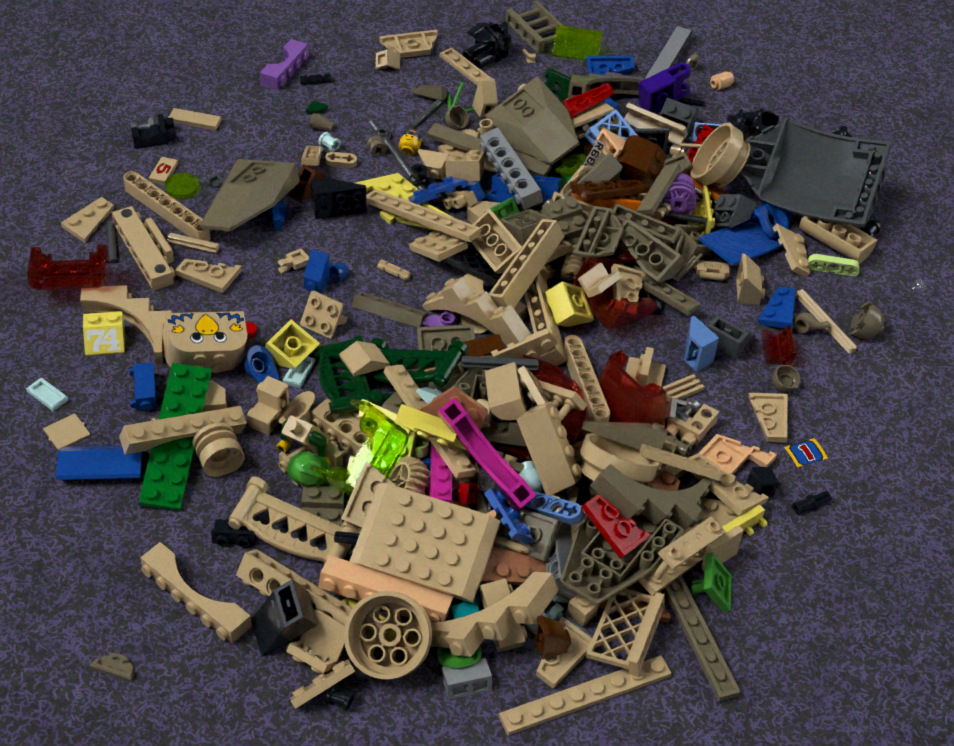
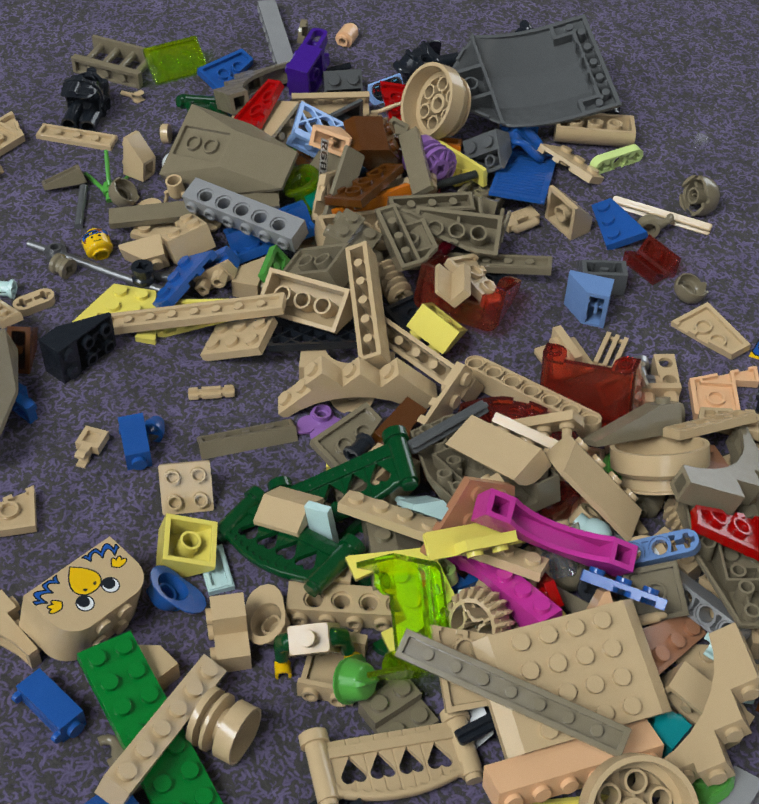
camera: 35 degrees left, 0 degrees up
(374, 374) = (321, 520): none -> light aqua tile
(374, 523) = (513, 693): none -> dark tan plate
(440, 346) = (362, 445): none -> black bush

